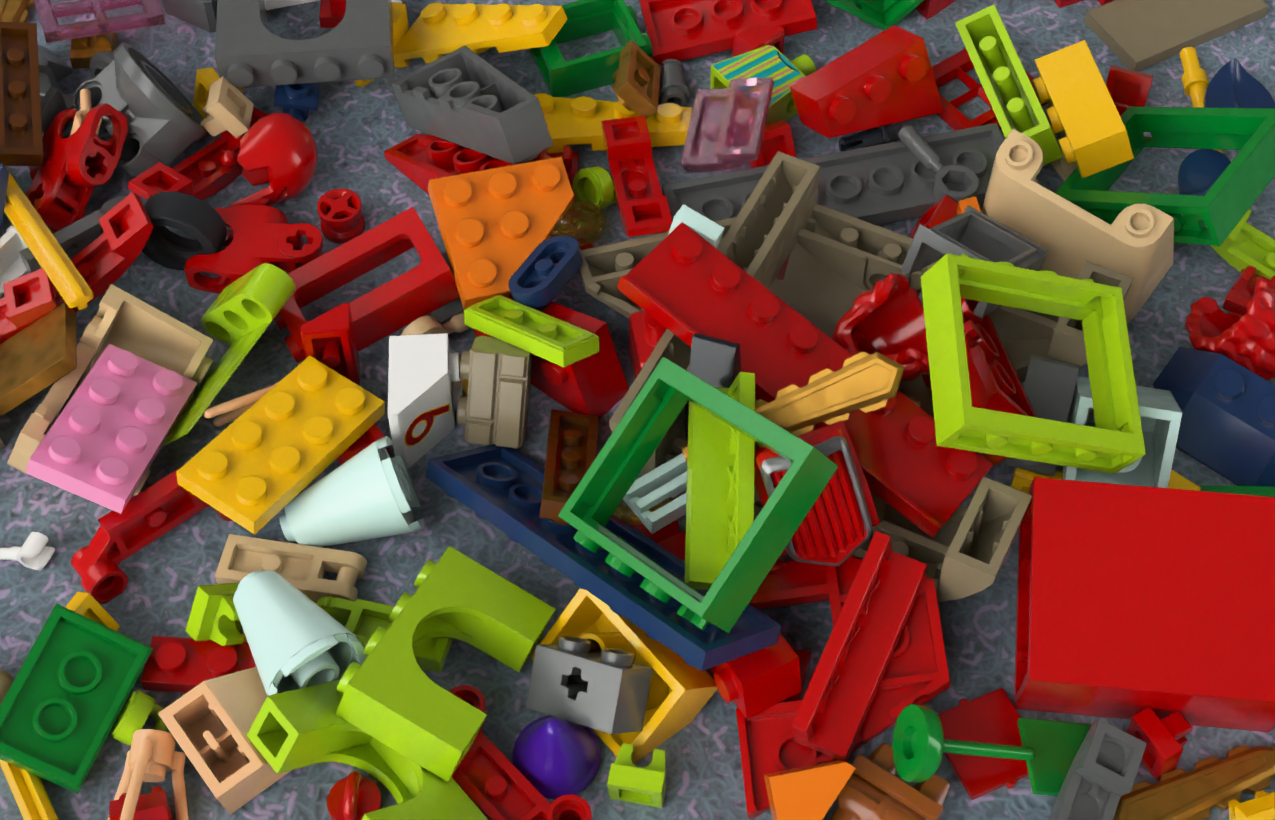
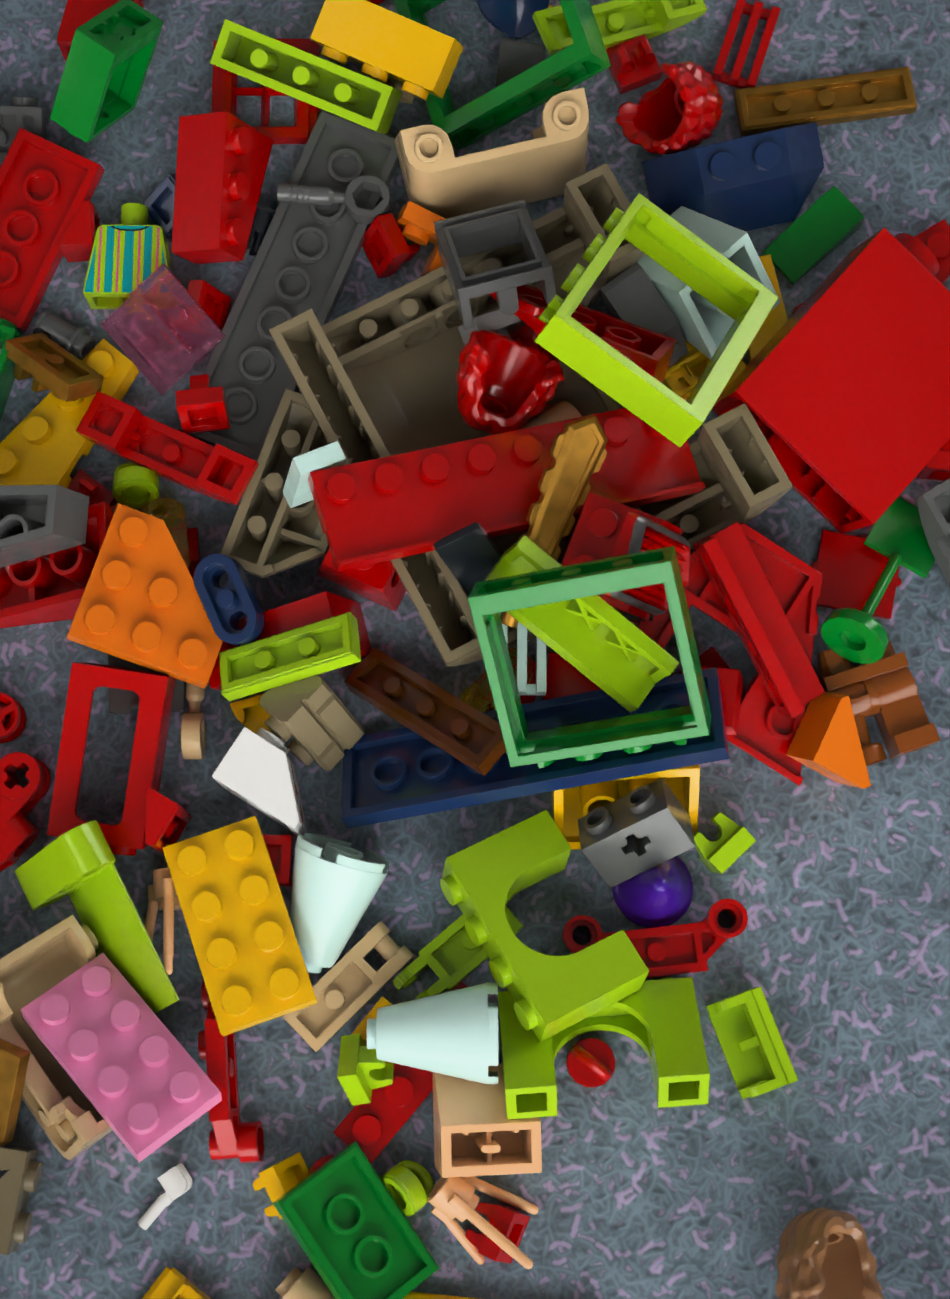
camera: 55 degrees left, 25 degrees up
(688, 178) = (202, 406): none -> red tile

